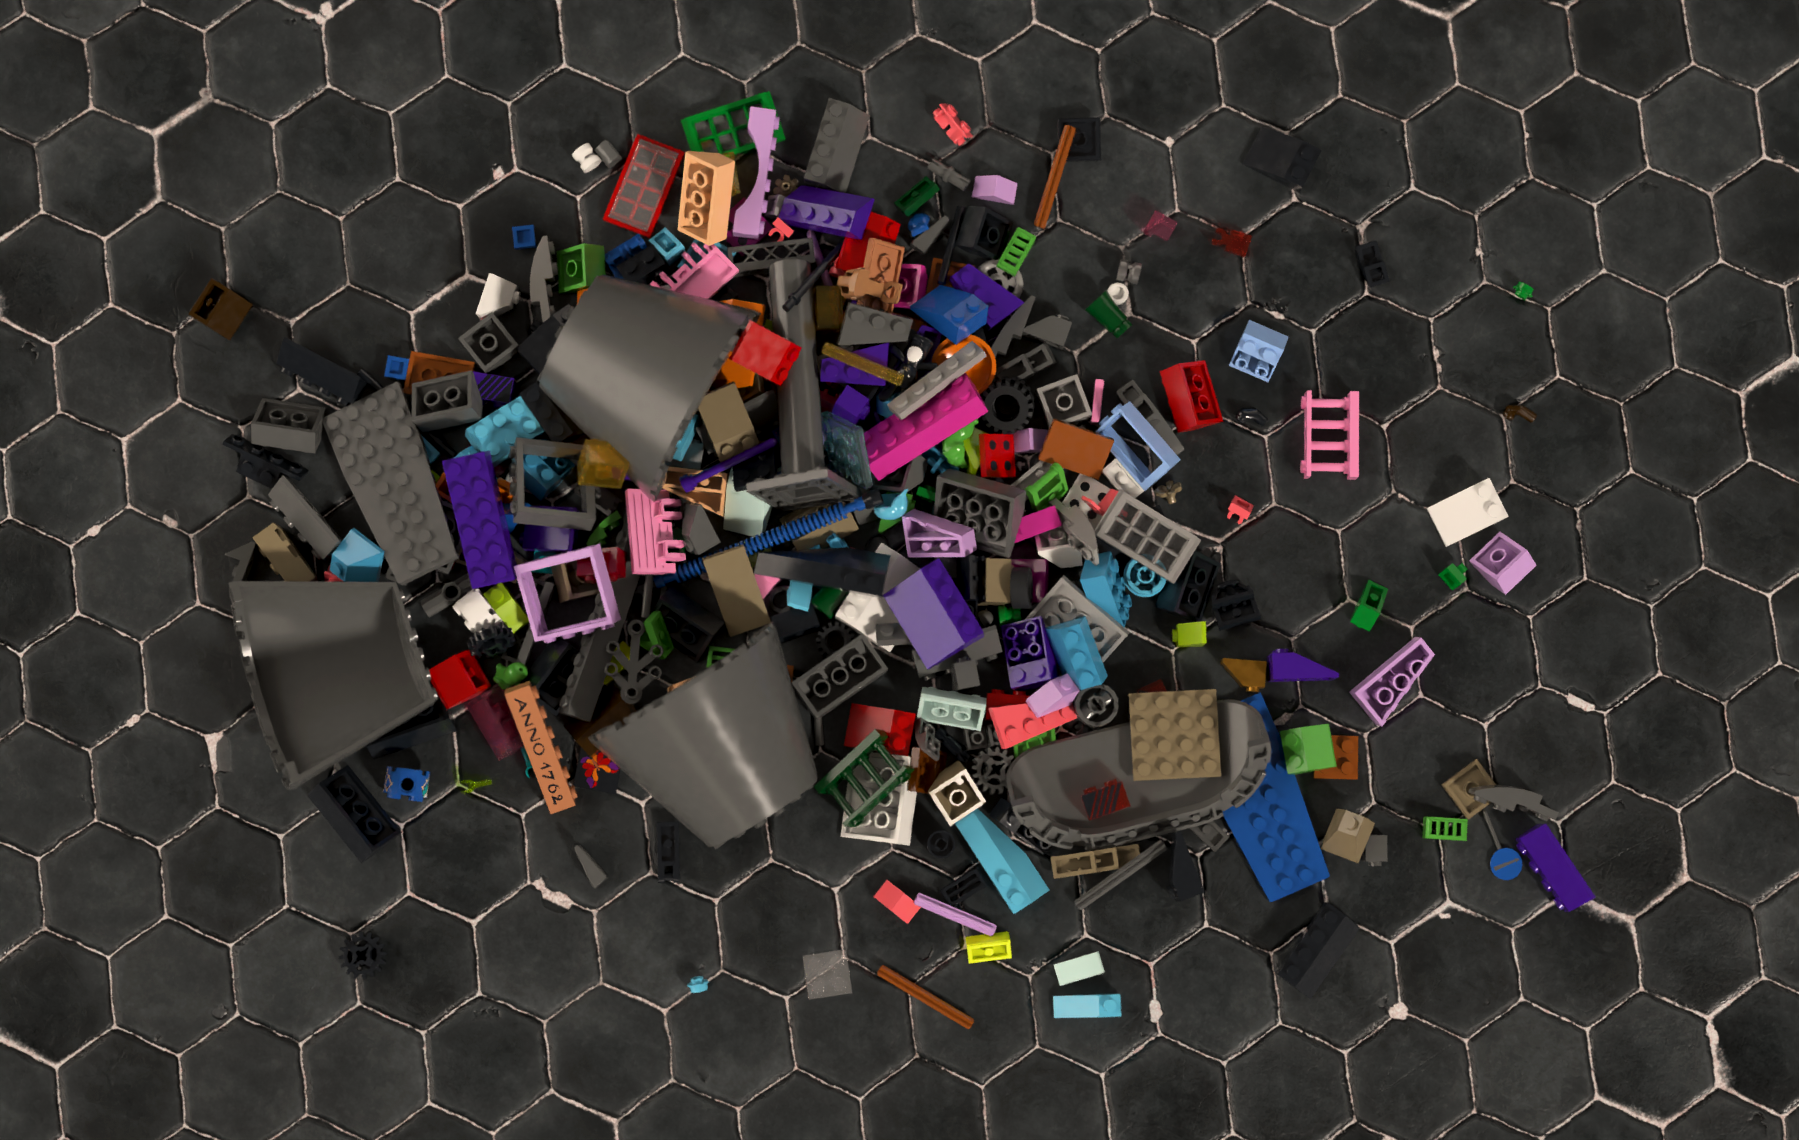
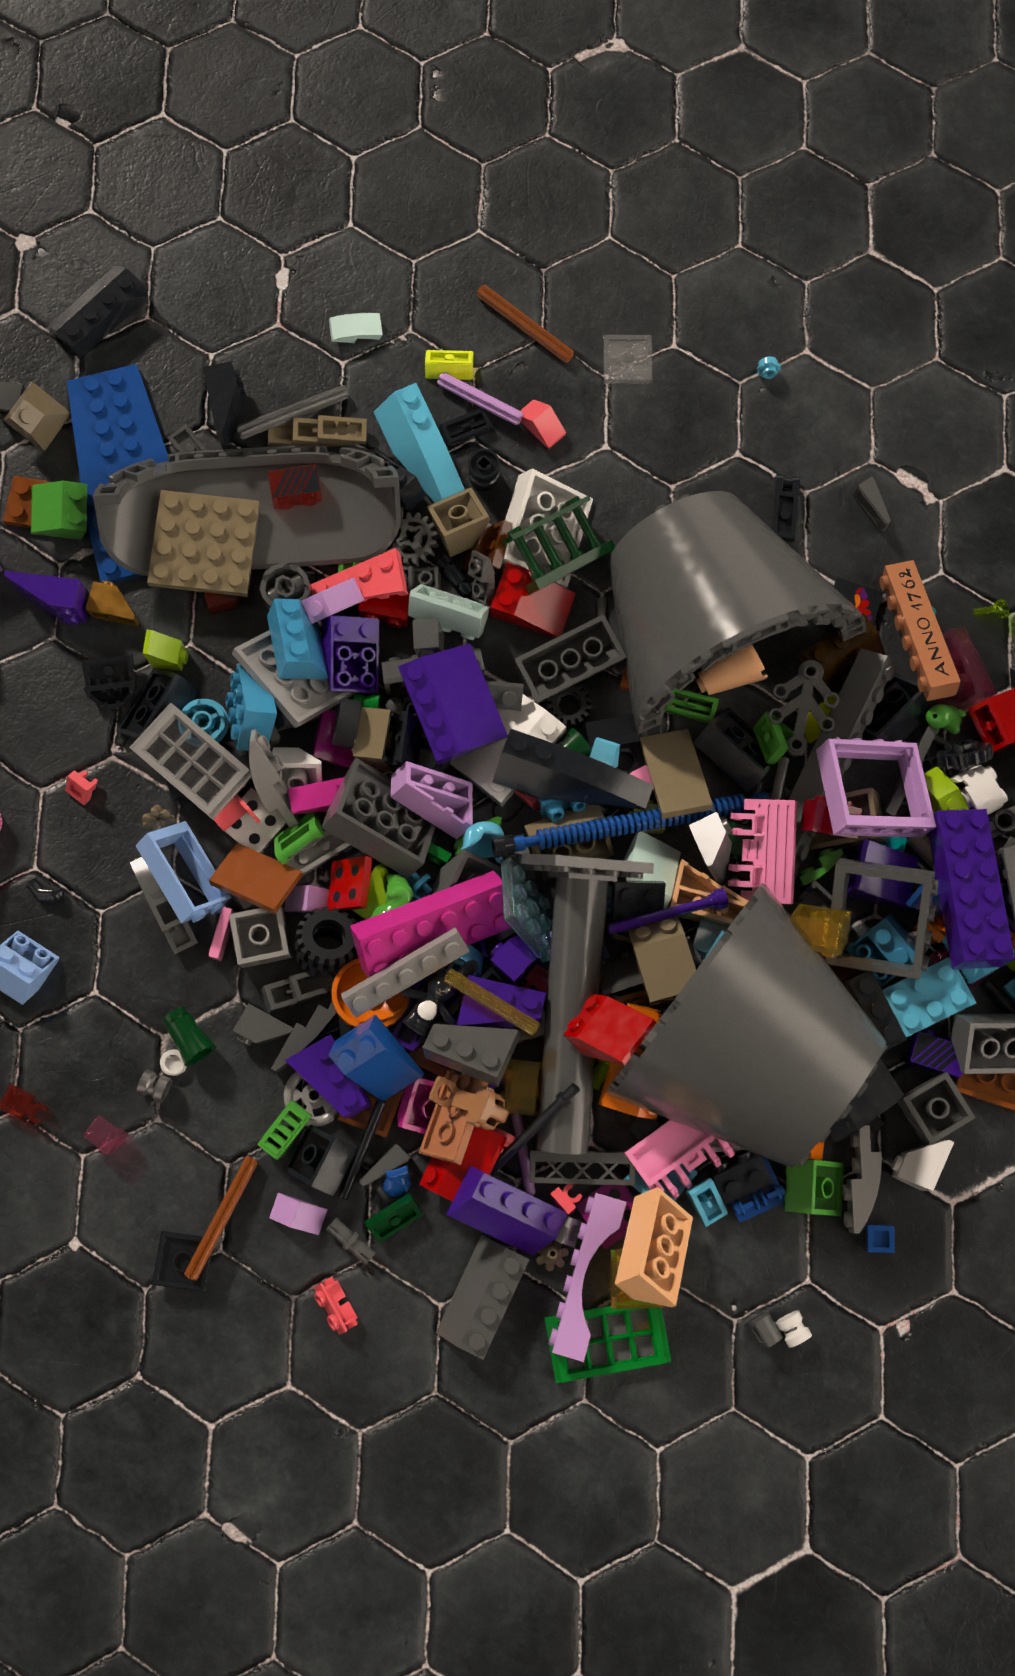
camera: 170 degrees left, 5 degrees down
(643, 186) = (726, 1283): clear piece -> none
(1087, 1006) = (351, 288): medium azure slope -> none
(1121, 479) = (209, 838): white plate -> none
(1191, 396) = (110, 924): red slope -> none

